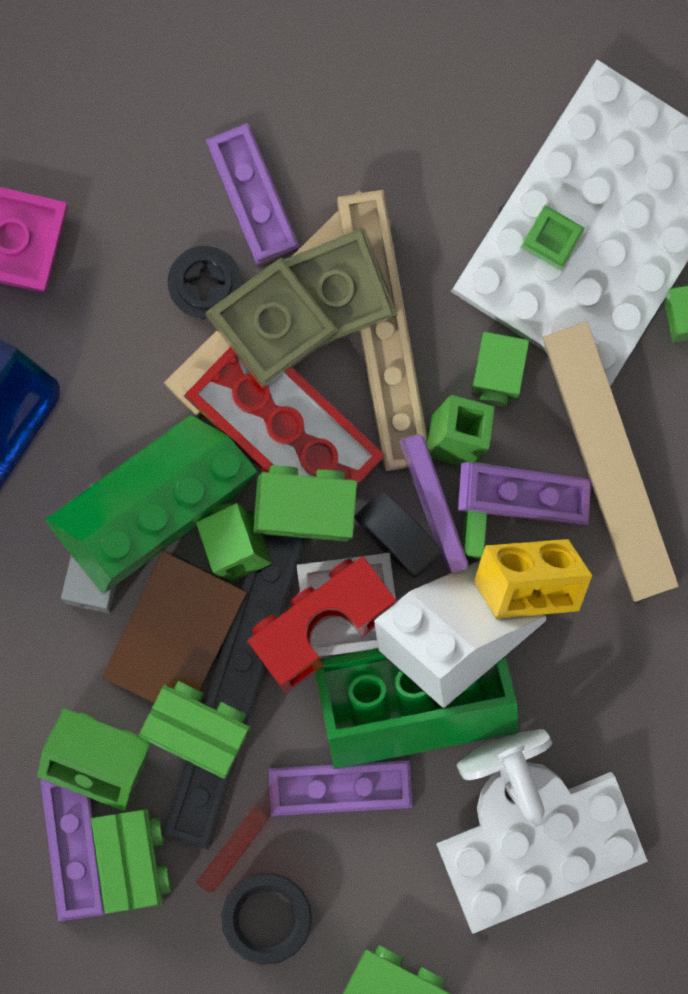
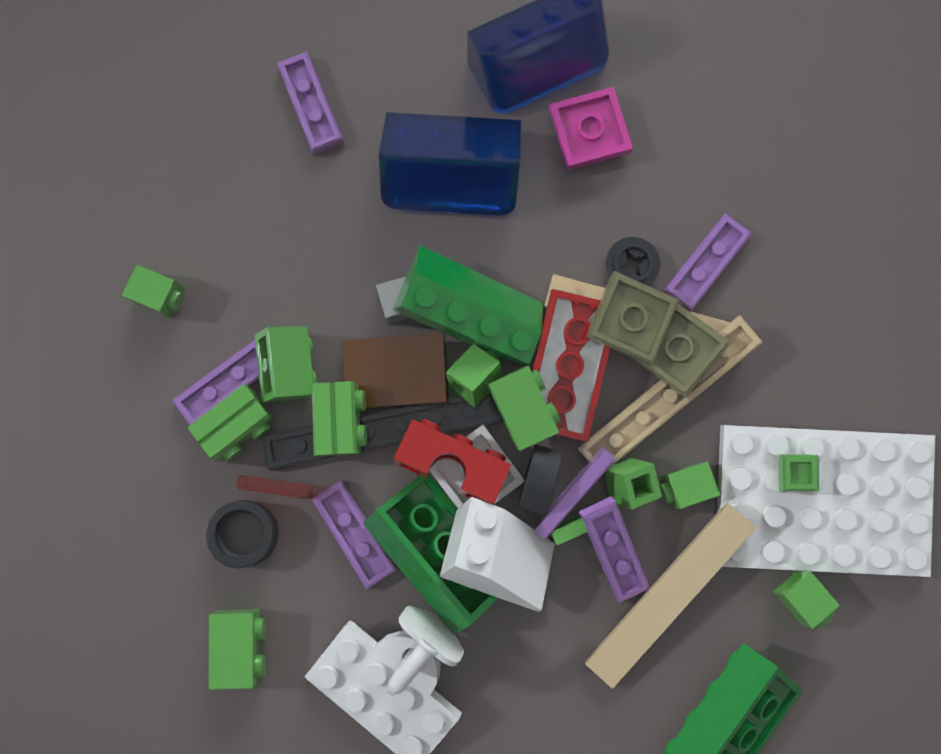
camera: 60 degrees right, 0 degrees up
(532, 578) = (561, 587): yellow brick -> none

